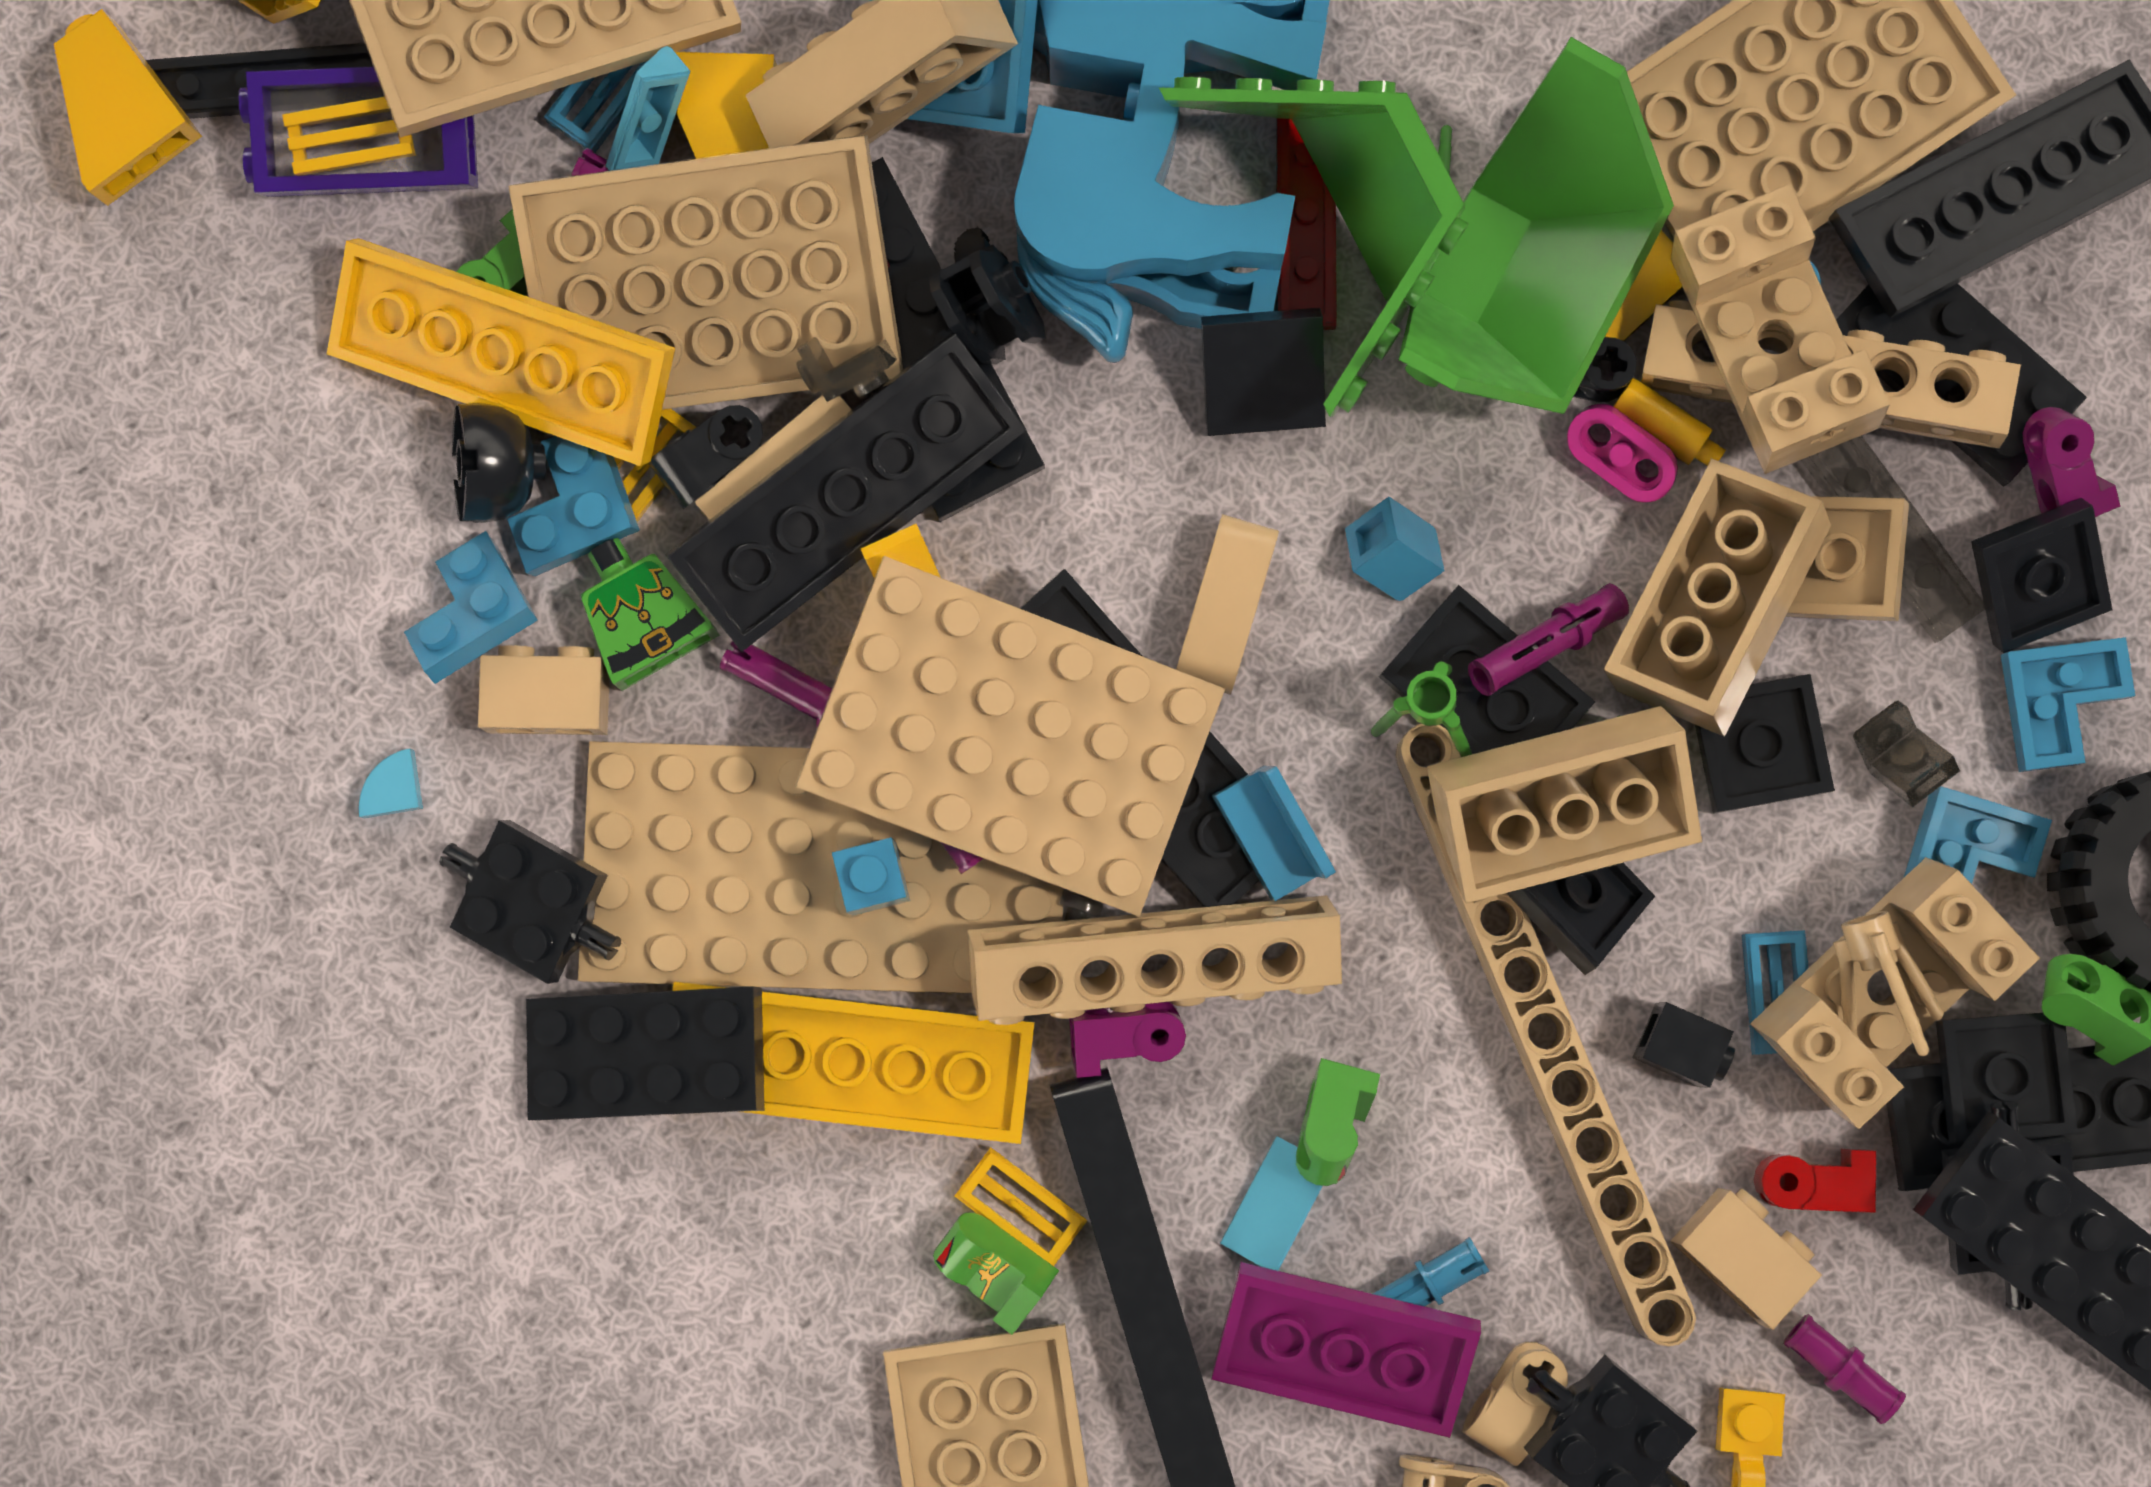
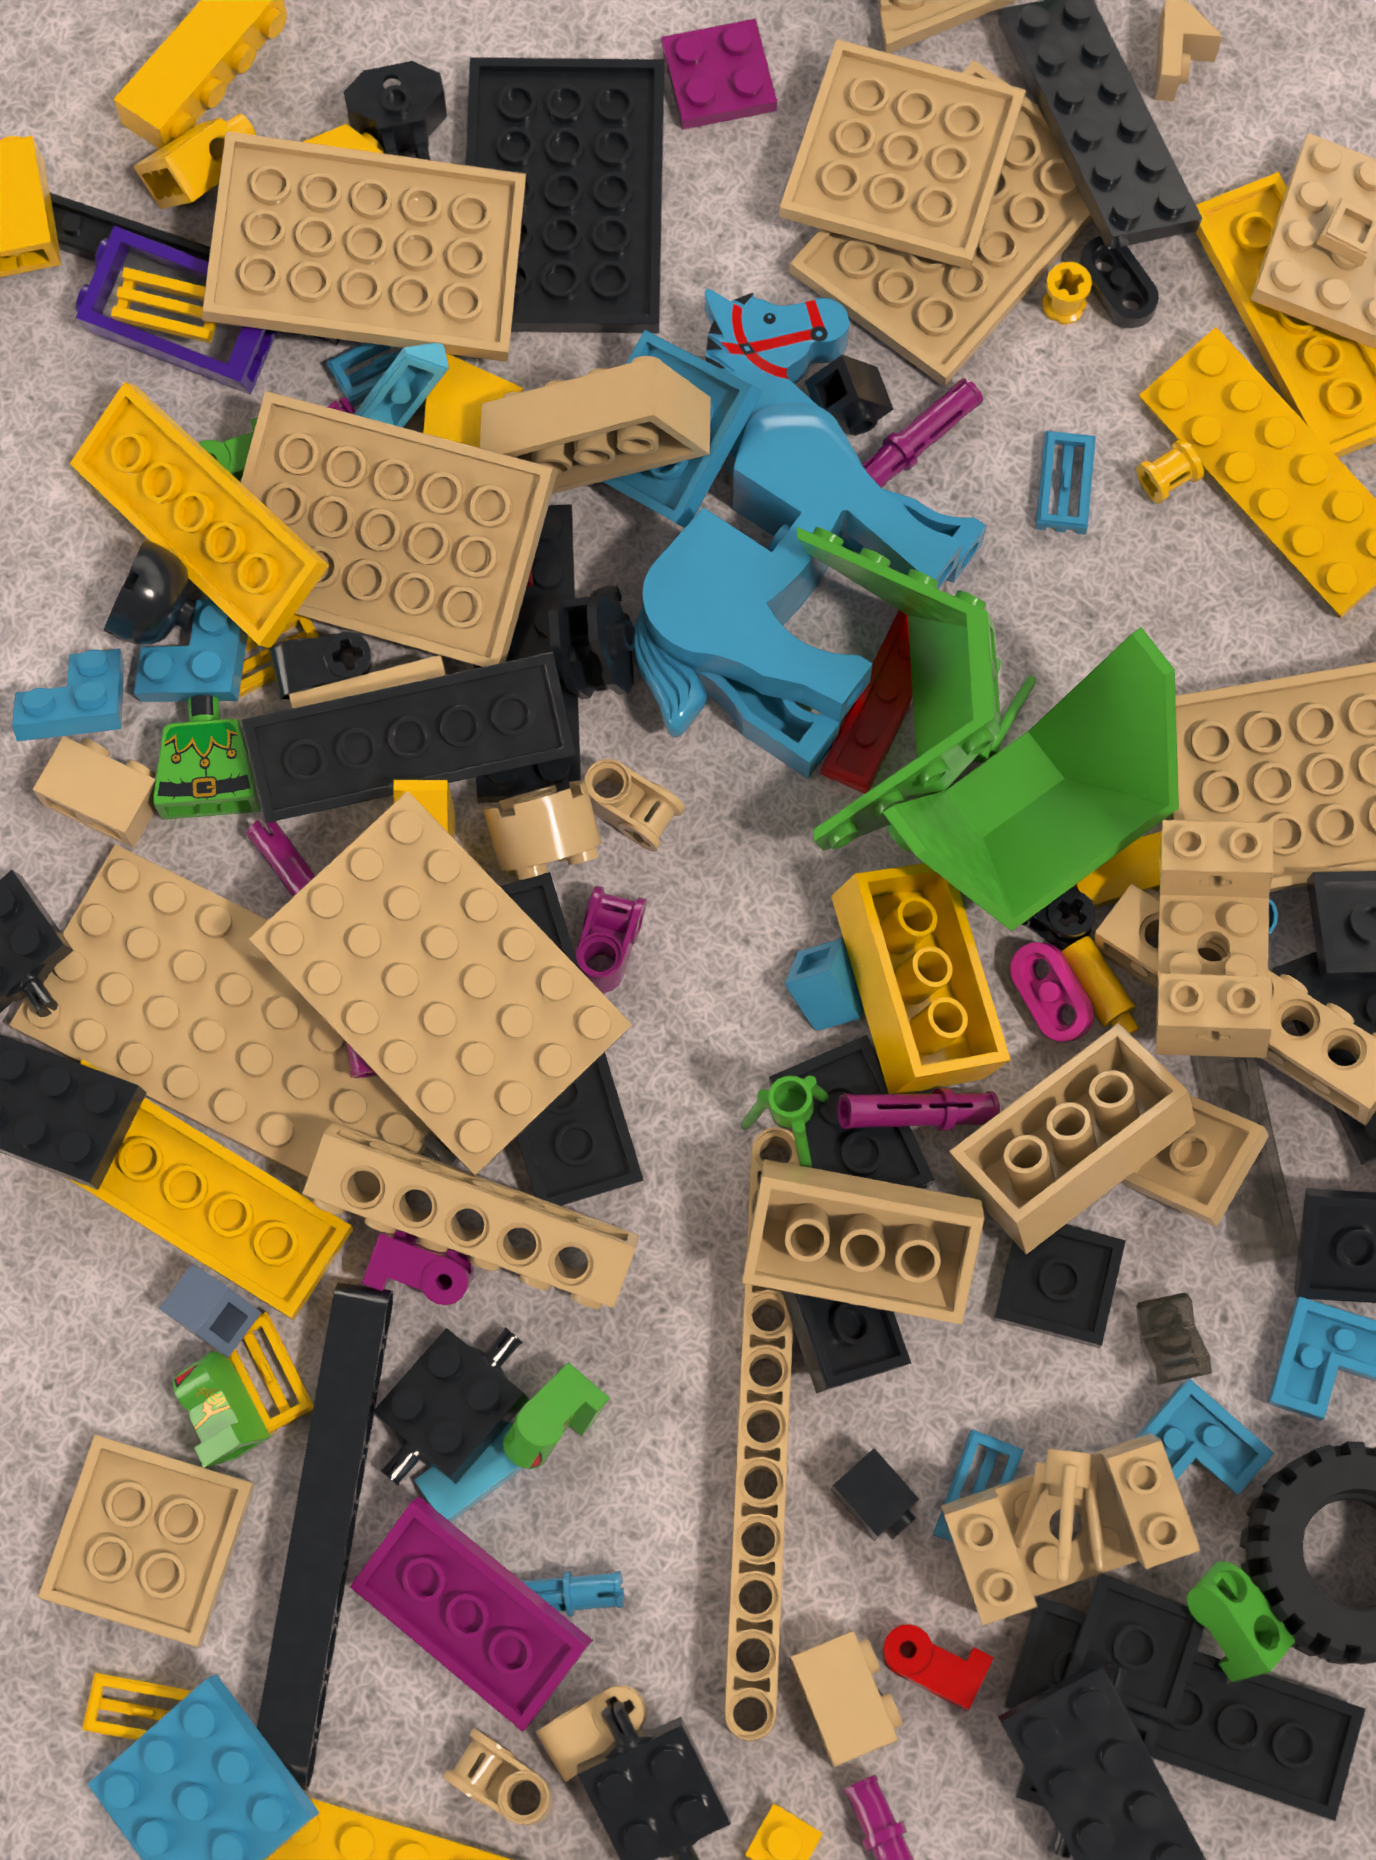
camera: 25 degrees right, 10 degrees down
(861, 372) = (464, 648): clear smoke bracket -> none
(871, 876) = (276, 1043): dark azure brick -> none
(936, 1176) = (210, 1310): none -> sand blue brick
(1032, 524) = (543, 829): none -> tan brick
(1106, 452) = (634, 805): none -> tan piece
(1147, 594) = (609, 930): none -> magenta piece
(1223, 1154) = (451, 1405): none -> black plate
(1227, 601) = (673, 964): tan beam -> none
(1263, 371) = (787, 794): black tile -> none
(1273, 832) = (615, 1159): dark azure panel -> none
(1488, 504) = (919, 978): none -> yellow brick

